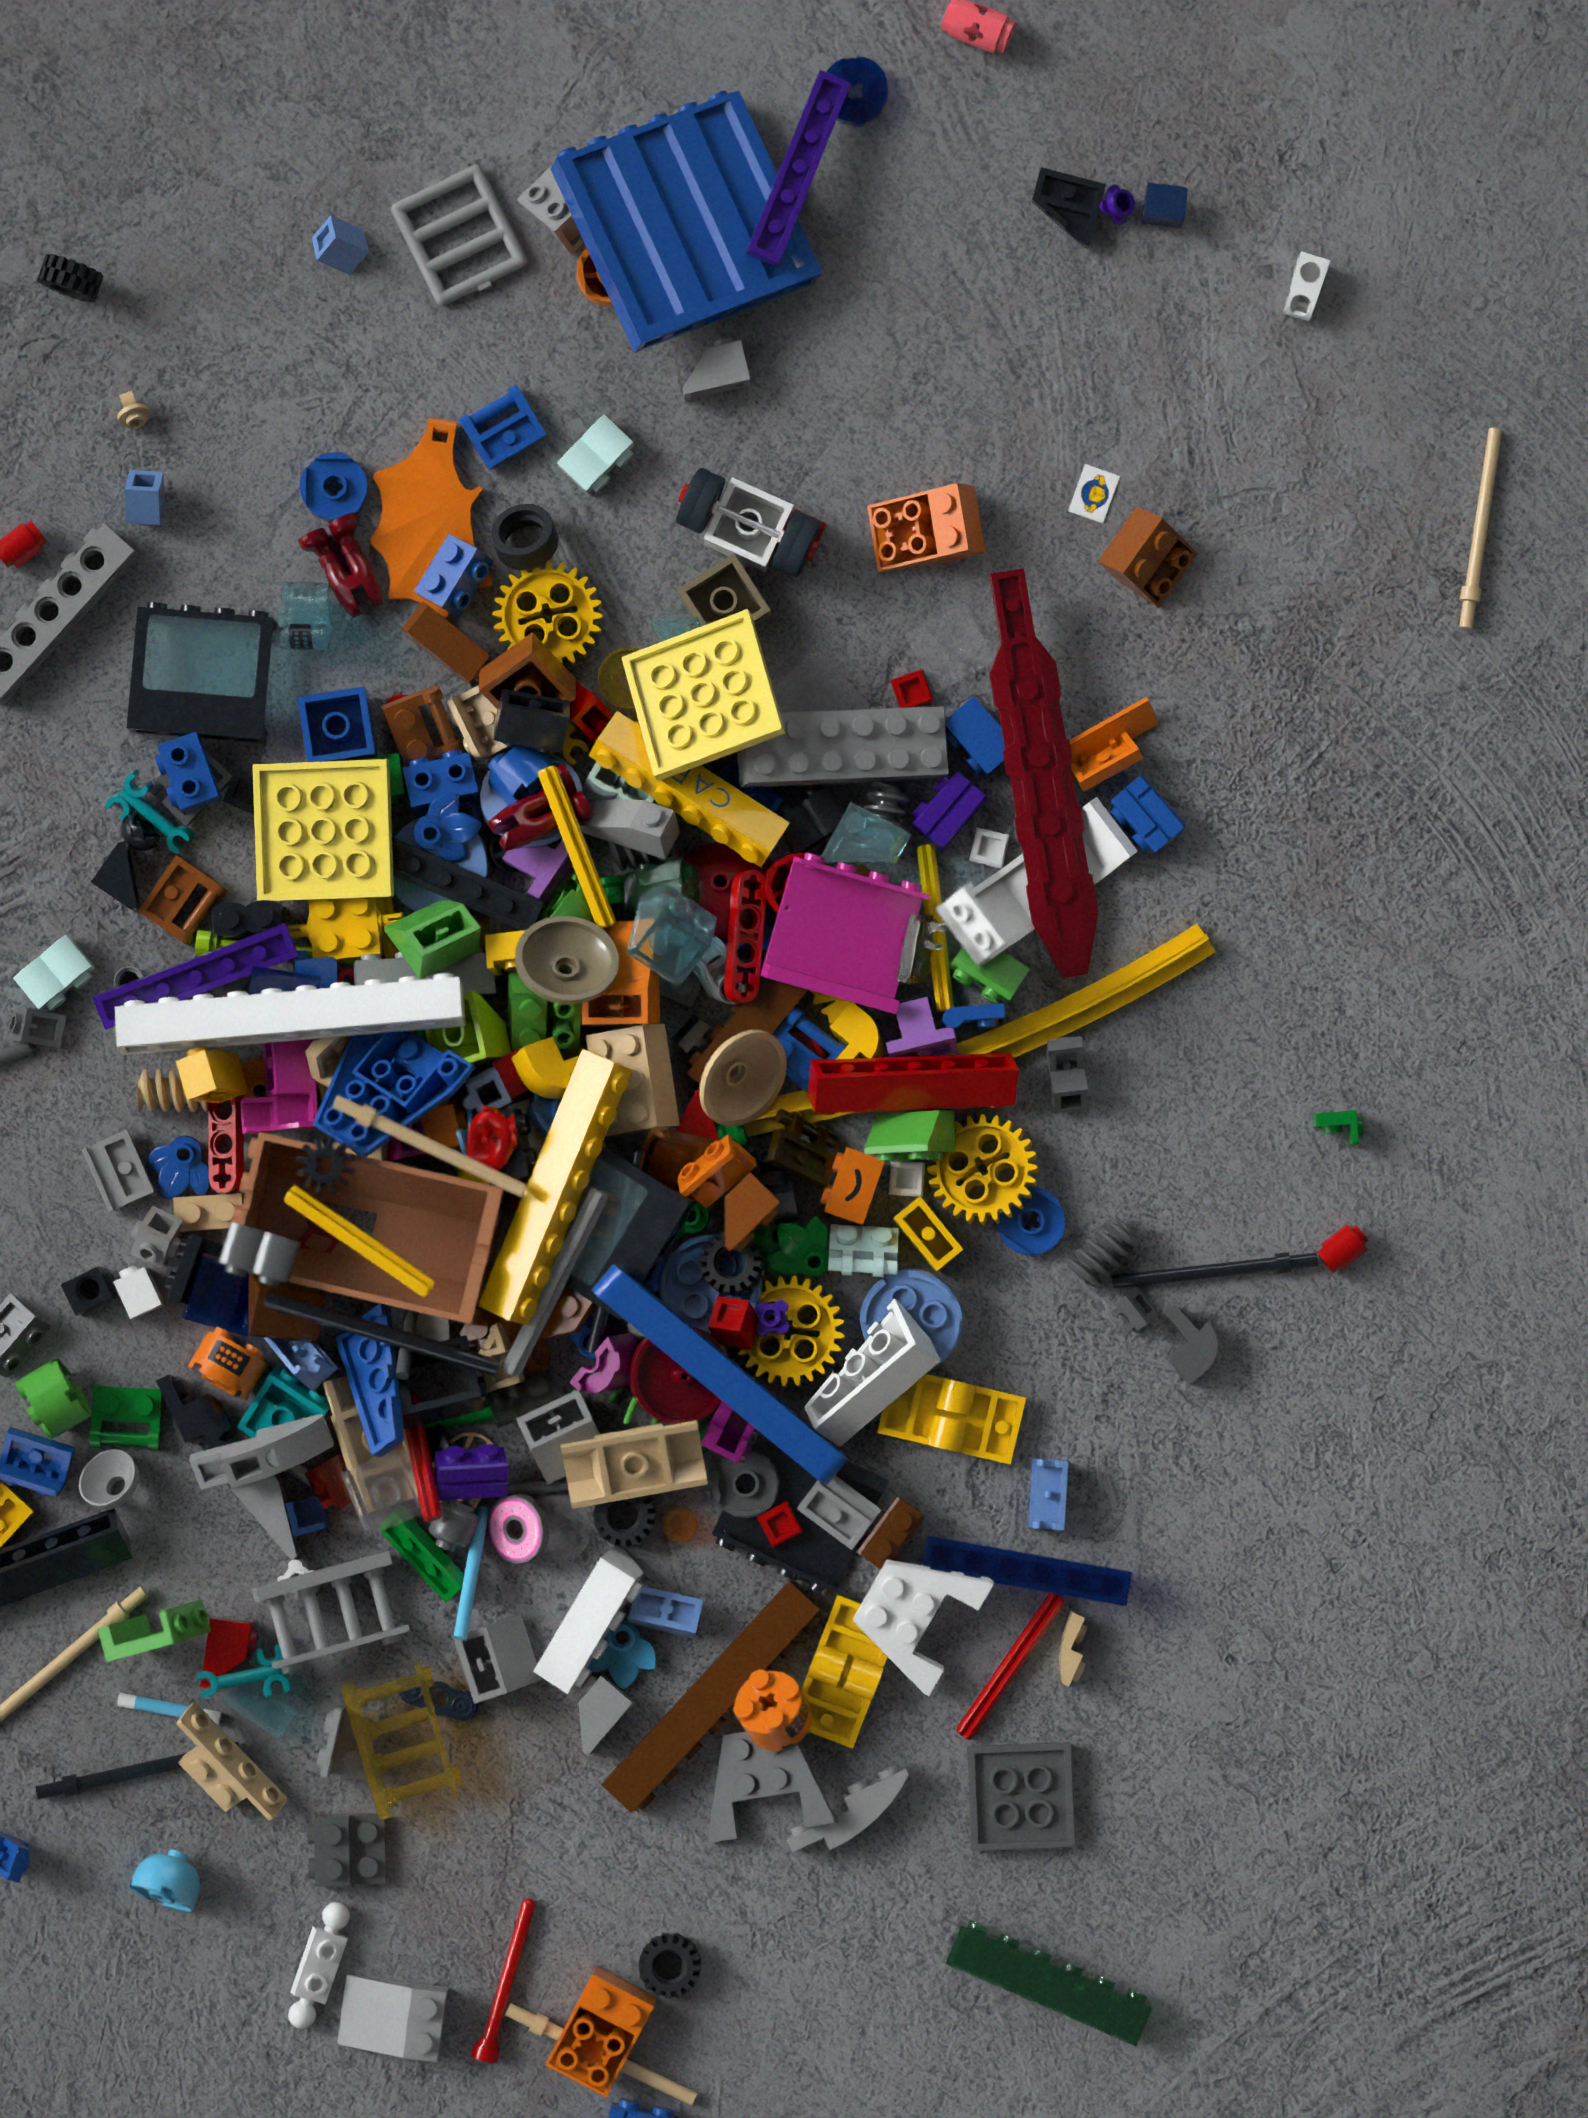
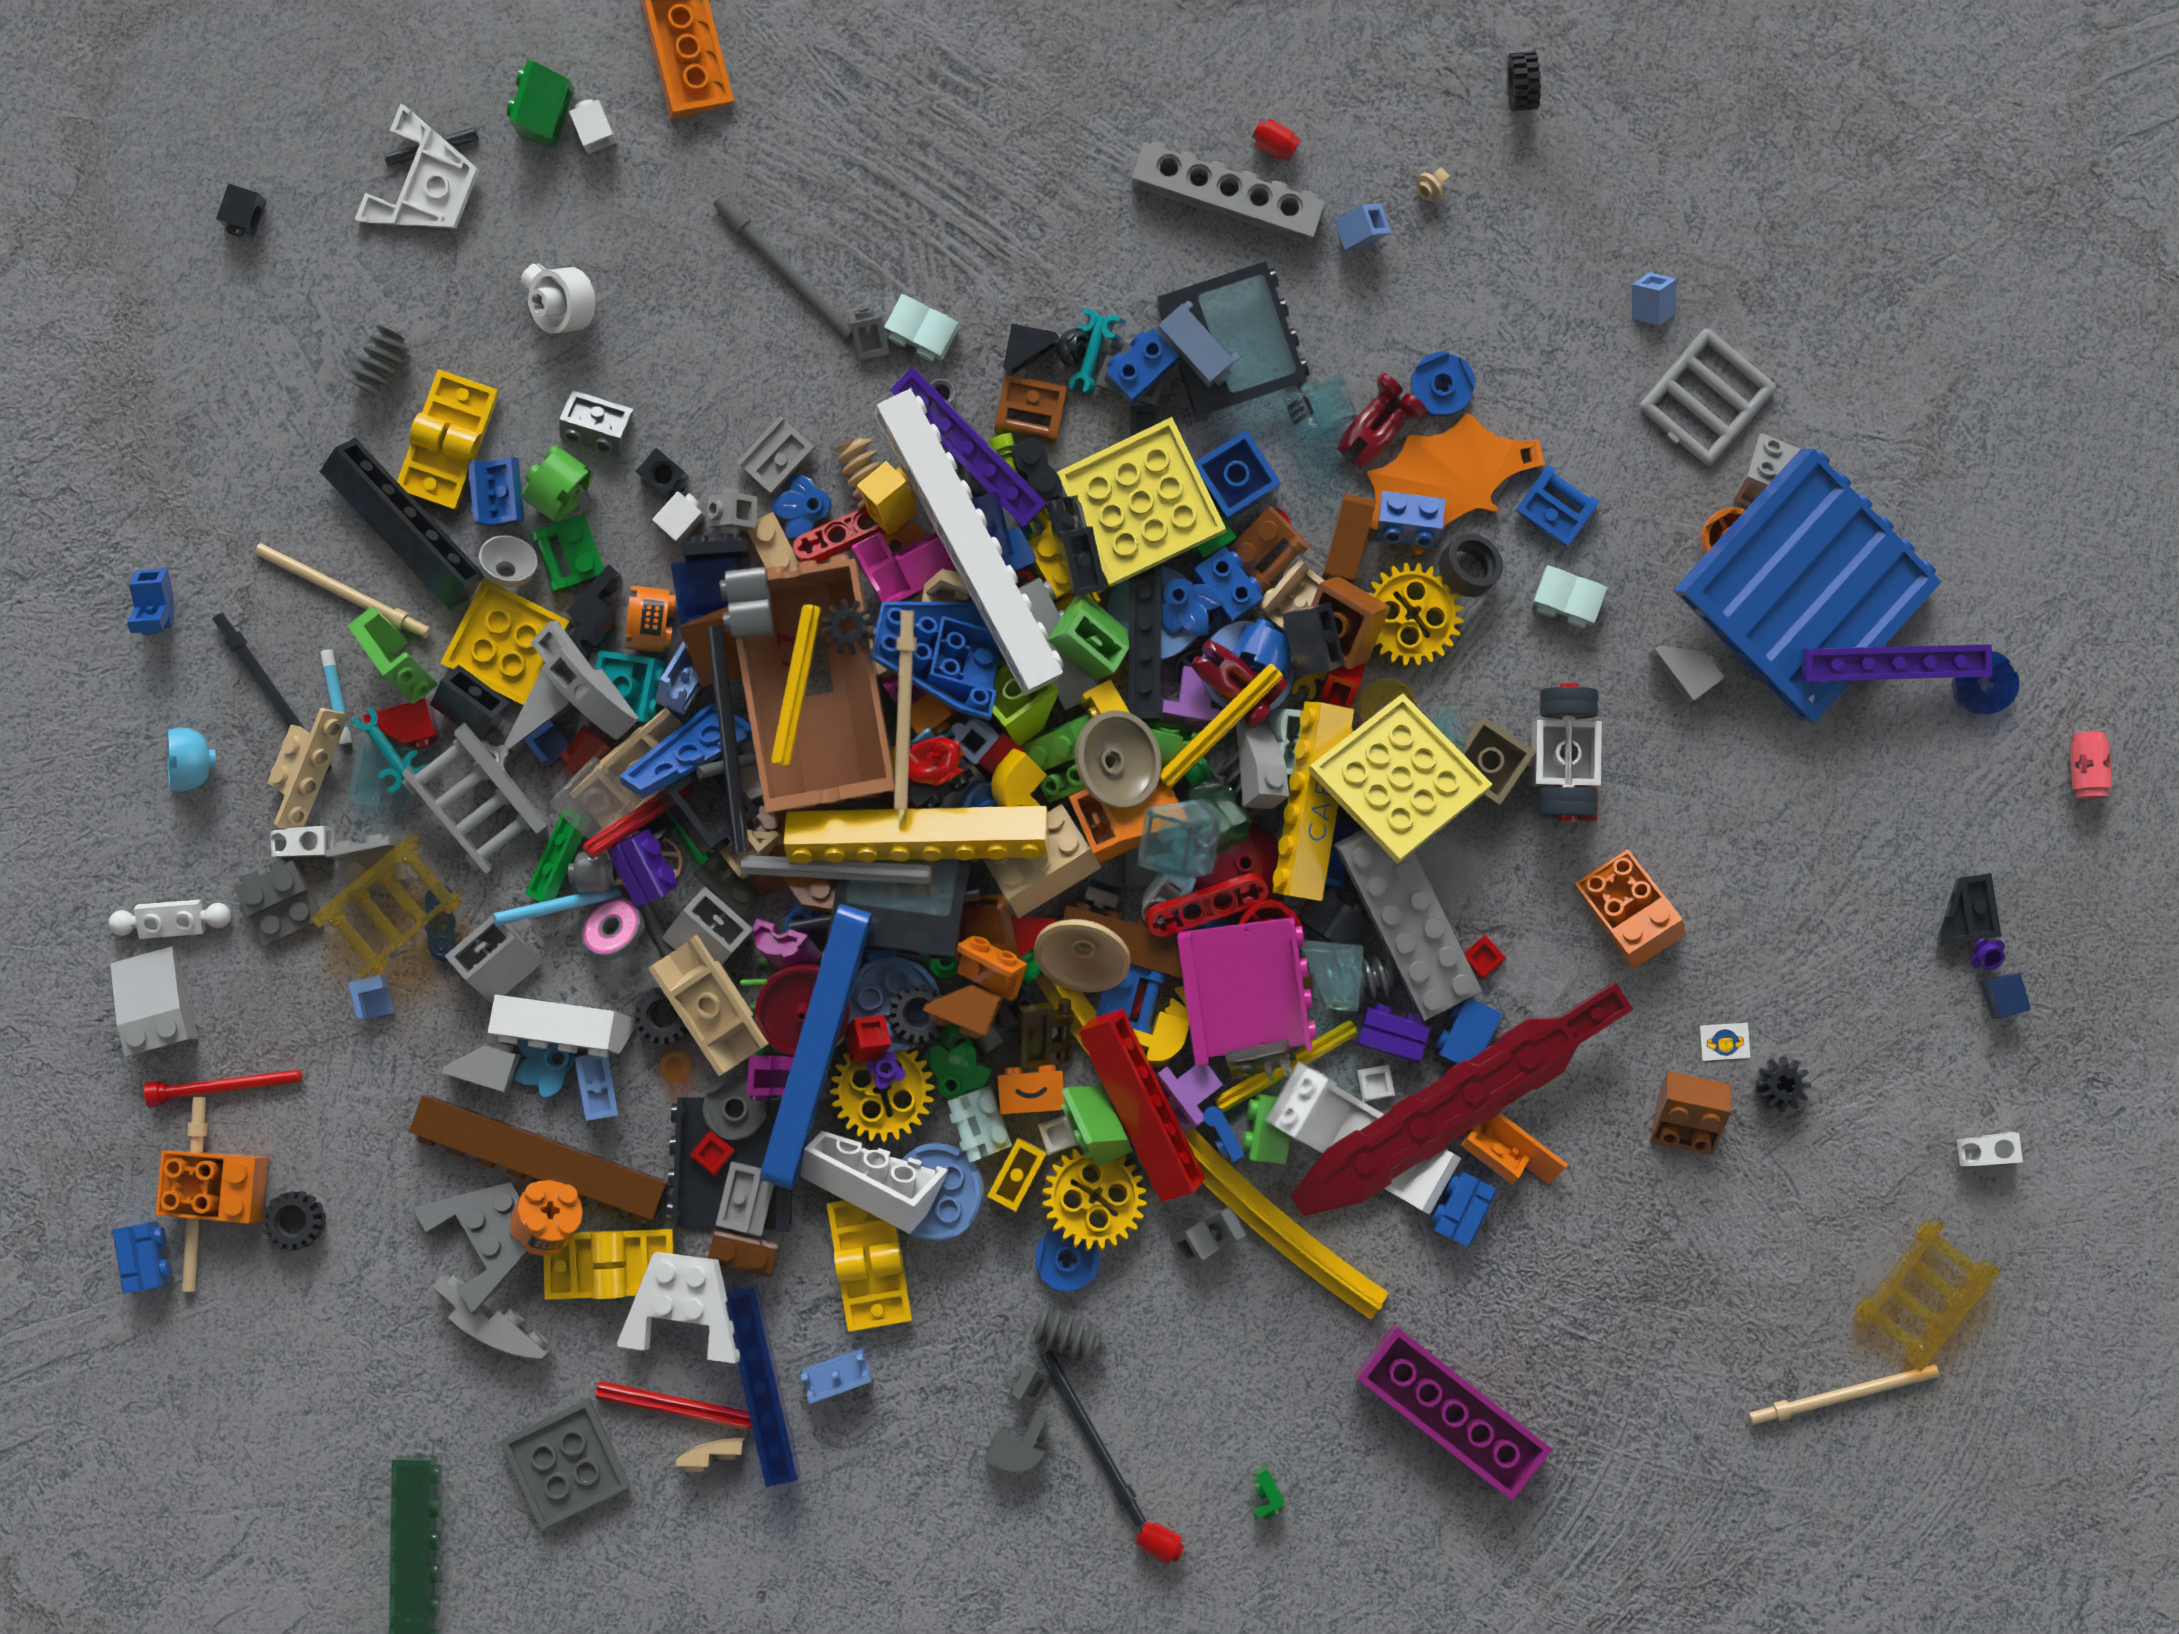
camera: 65 degrees right, 0 degrees up
(186, 1525) = (497, 639): none -> yellow plate
(194, 709) = (1197, 346): none -> sand blue brick
(231, 1575) = (469, 701): none -> black brick
(299, 1801) = (302, 841): none -> white leg
(339, 912) = (1076, 546): none -> black plate
(483, 1796) = (371, 997): none -> medium blue panel
(1149, 465) = (1779, 1096): none -> black gear
(1336, 910) = (1453, 1412): none -> magenta brick
(1435, 380) = (1958, 1300): none -> clear yellow fence

